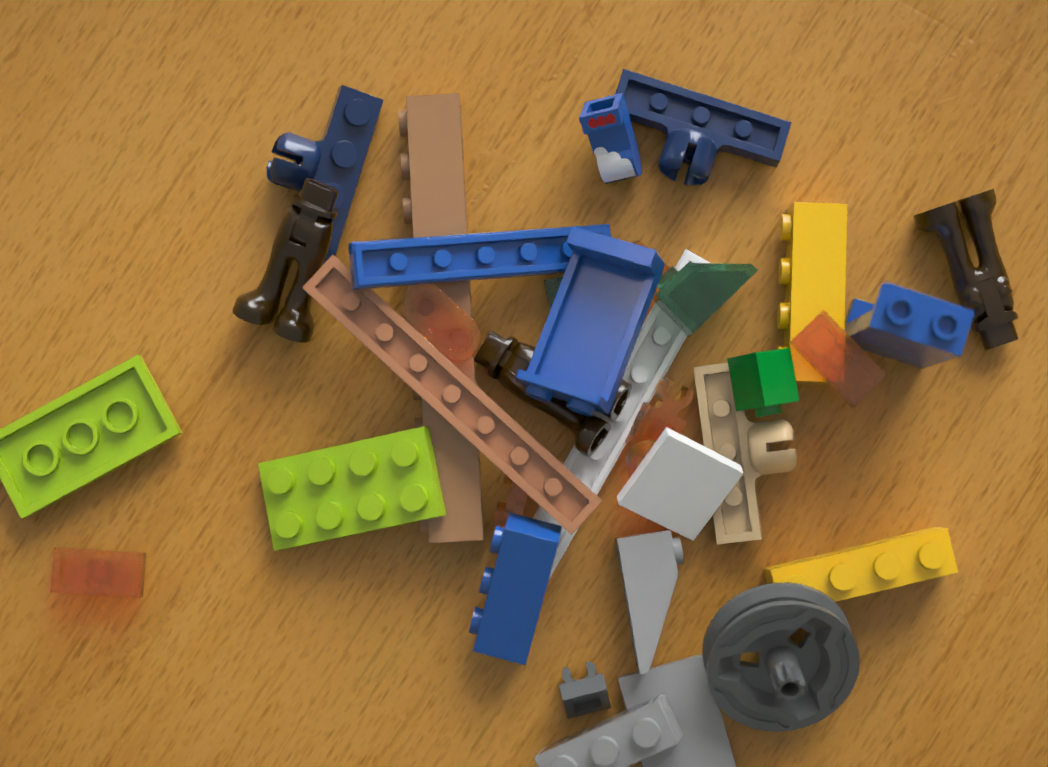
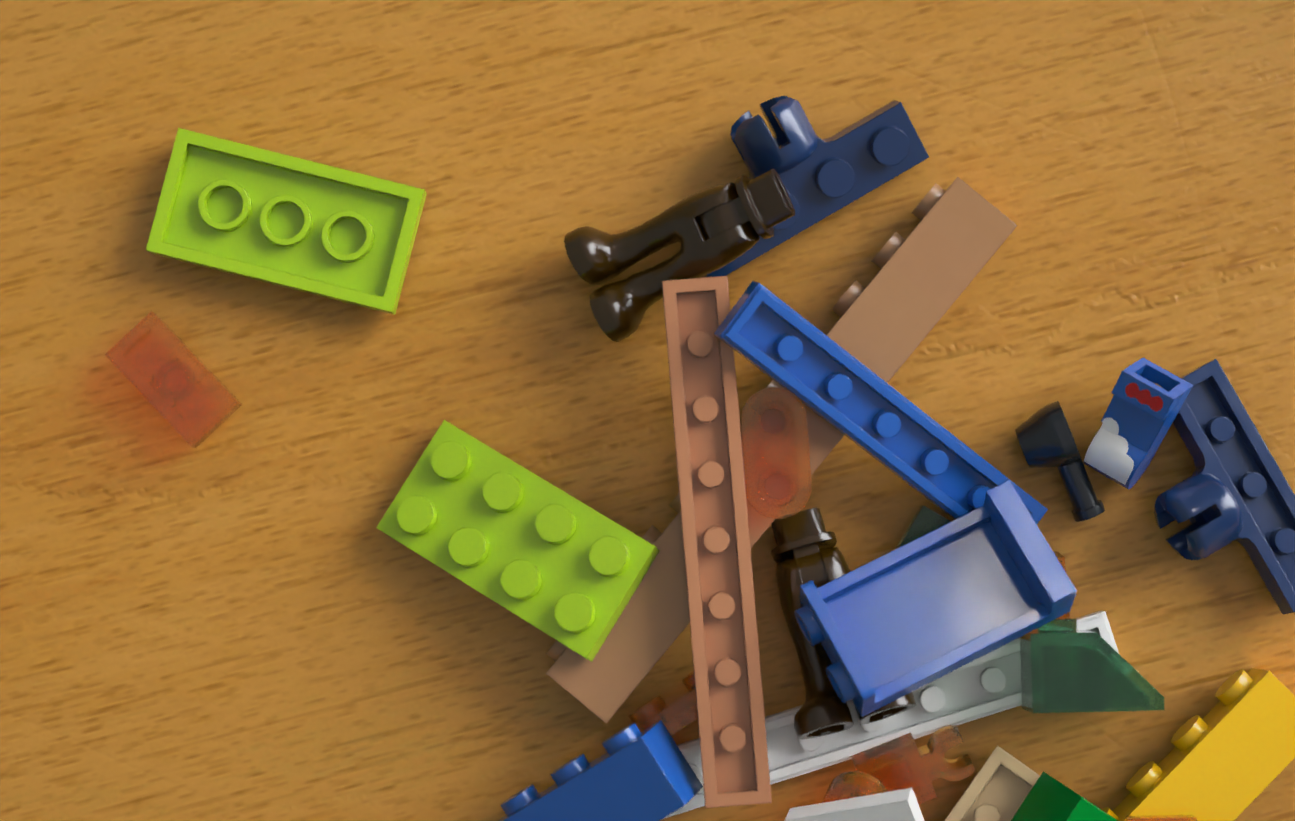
camera: 40 degrees right, 0 degrees up
(578, 189) = (1049, 443): none -> black bar

